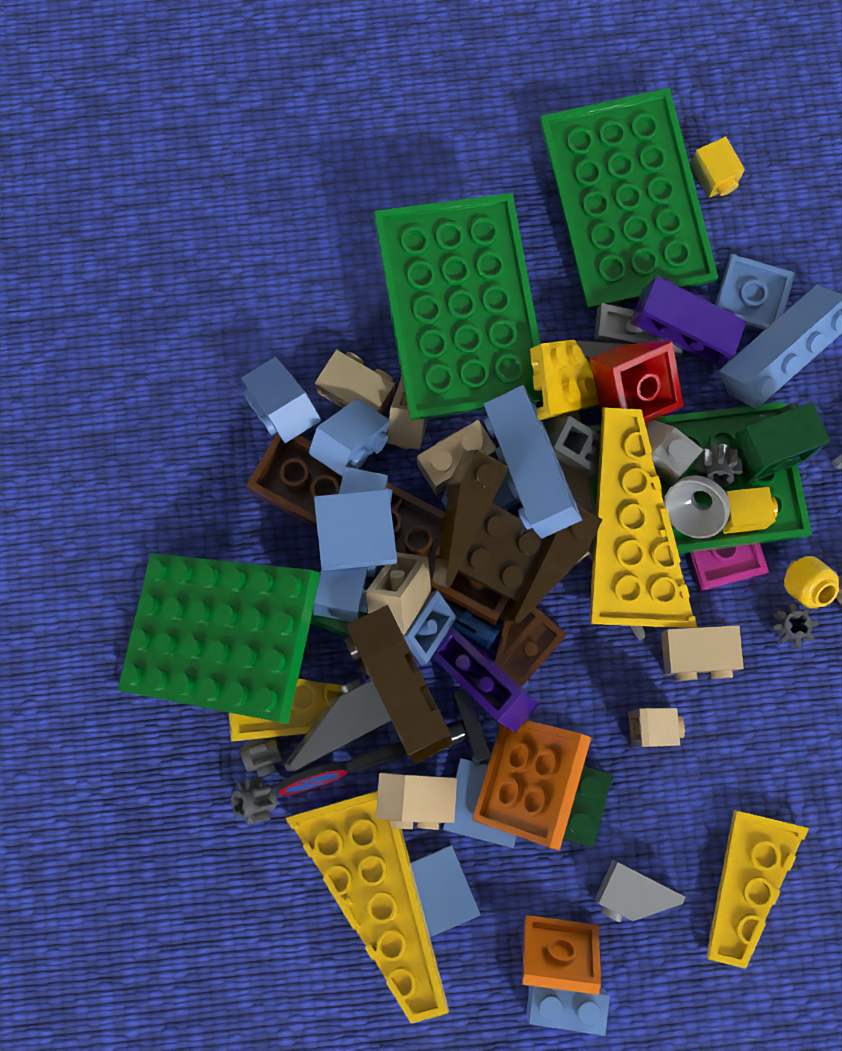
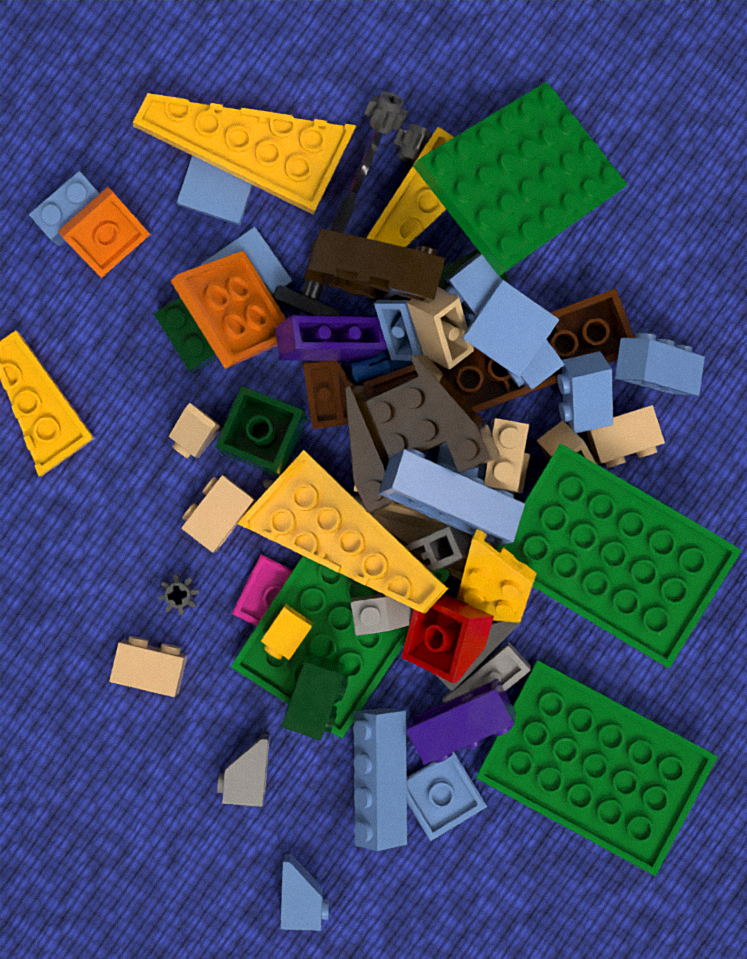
camera: 125 degrees right, 10 degrees up
(342, 721) = (386, 210): dark grey slope -> none
(416, 799) = (289, 222): tan brick -> none
(608, 672) = (261, 432): none -> dark green brick
(633, 894) = (99, 318): light grey slope -> none
(690, 516) = (319, 589): light grey piece -> none
(717, 168) = (561, 858): yellow brick -> none
(719, 464) = (335, 641): dark grey gear -> none
(811, 582) = (197, 634): yellow head -> none

